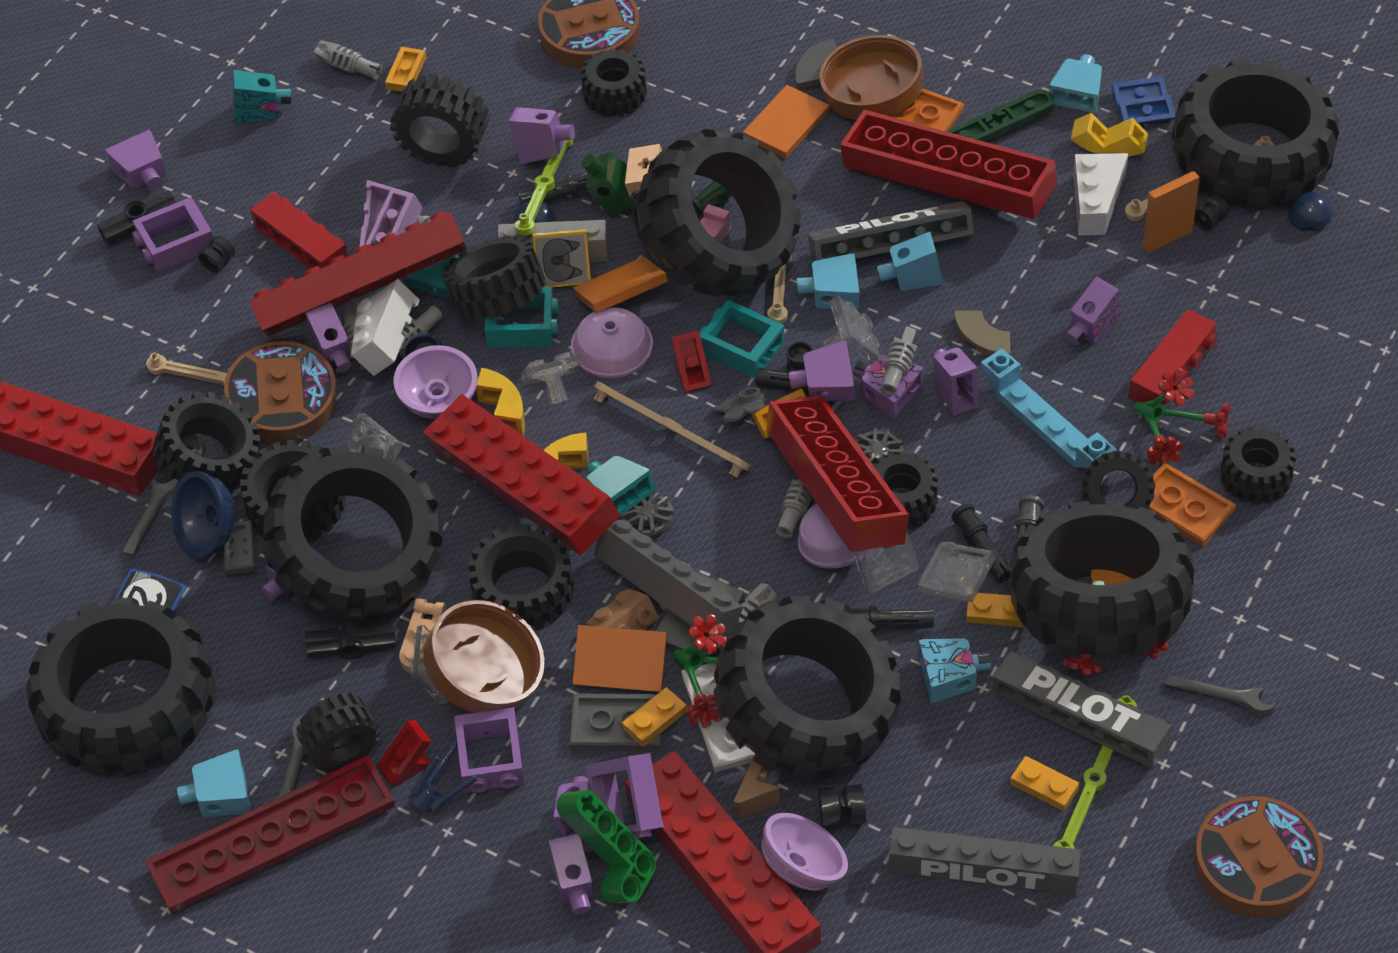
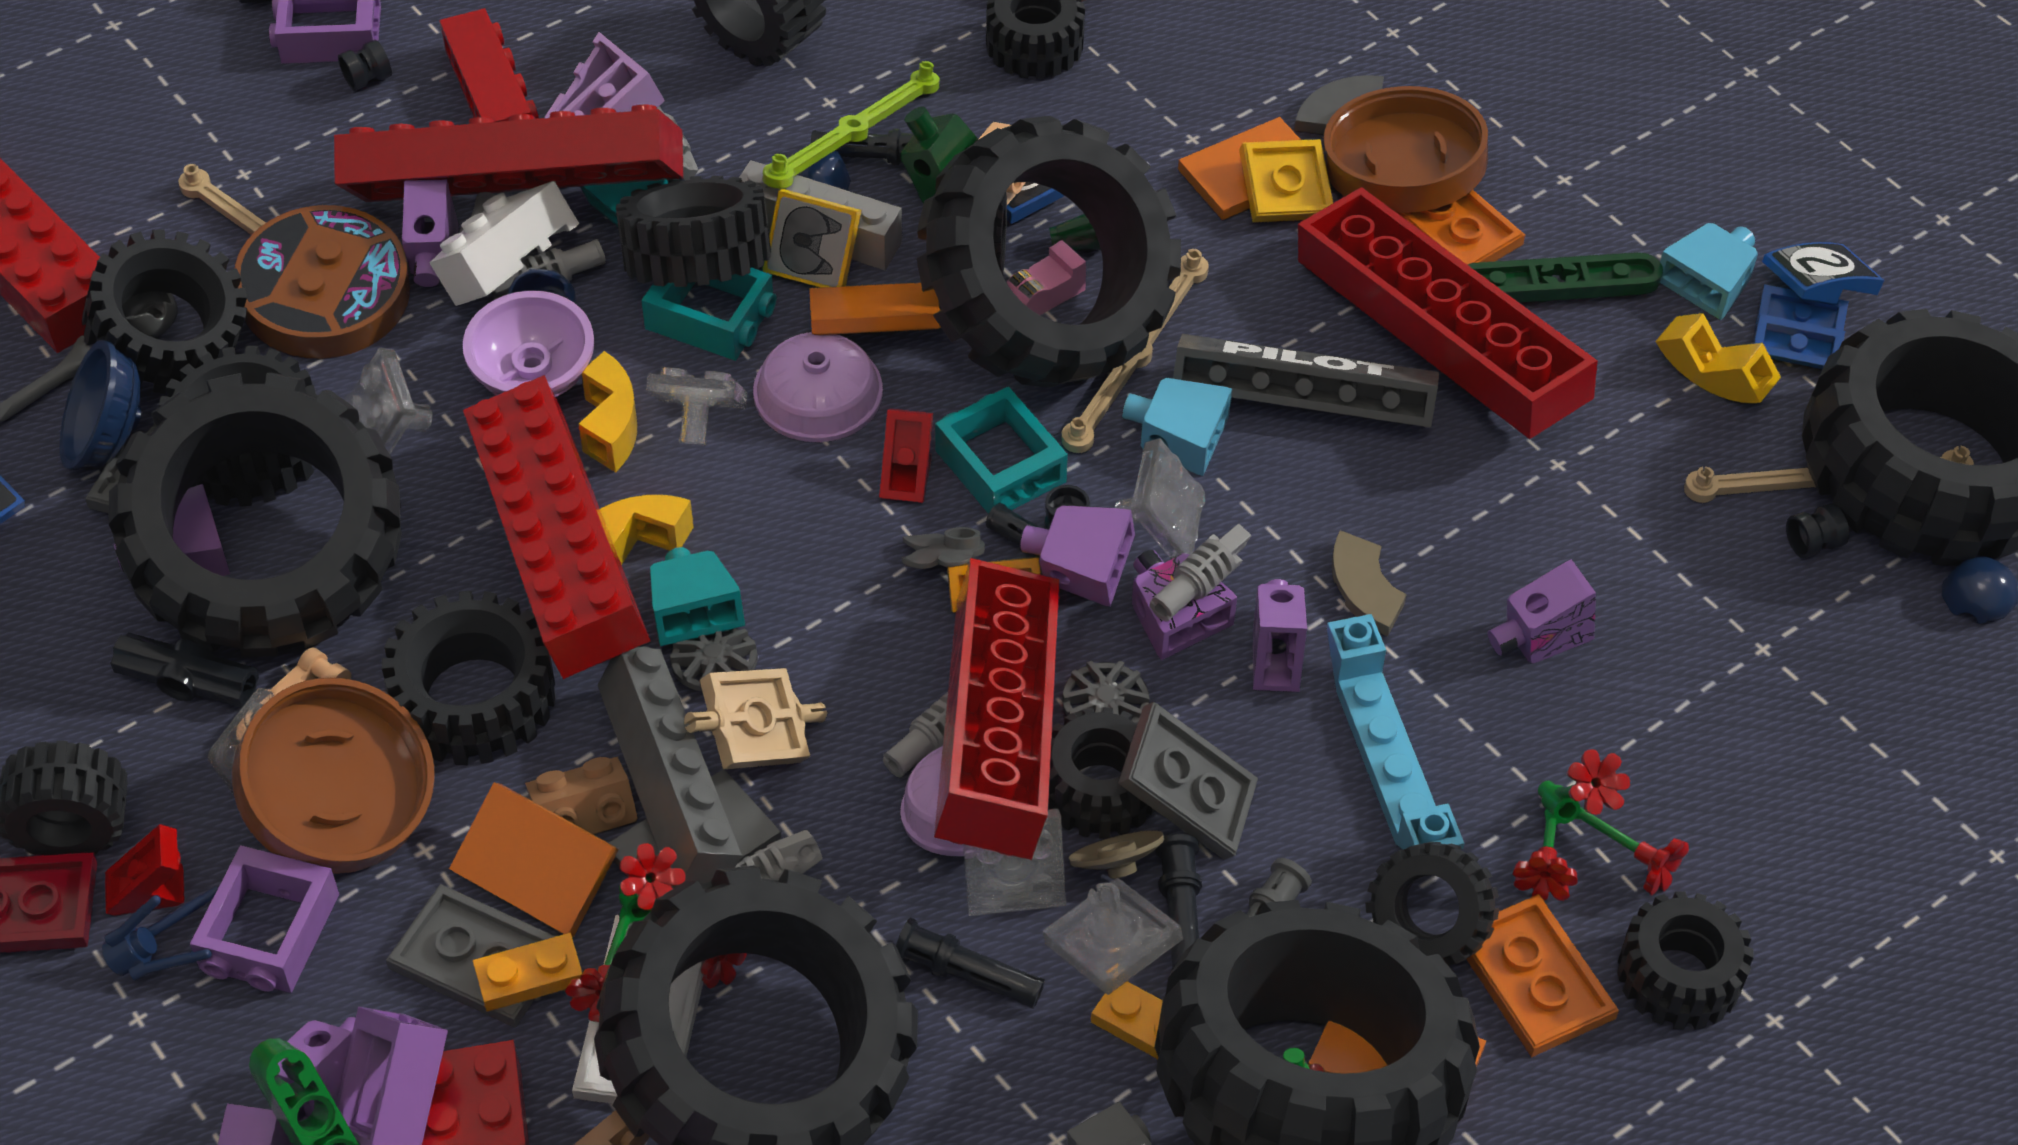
camera: 20 degrees right, 0 degrees up
(538, 133) = (881, 56): medium lavender torso -> none
(698, 535) = (755, 718): none -> tan plate
(737, 463) = (888, 635): tan piece -> none
(813, 121) = (1285, 179): none -> yellow tile
(913, 264) = (1313, 438): medium azure torso -> none
(935, 527) = (1117, 853): none -> dark tan dish
(950, 667) = (1017, 1086): medium azure torso -> none
(953, 474) = (1188, 780): none -> dark grey tile
(1096, 189) = (1656, 431): white wedge -> none
(1140, 64) = (1822, 271): none -> slope
(1170, 211) = (1745, 504): orange tile -> none
(1179, 349) = (1646, 729): red brick -> none

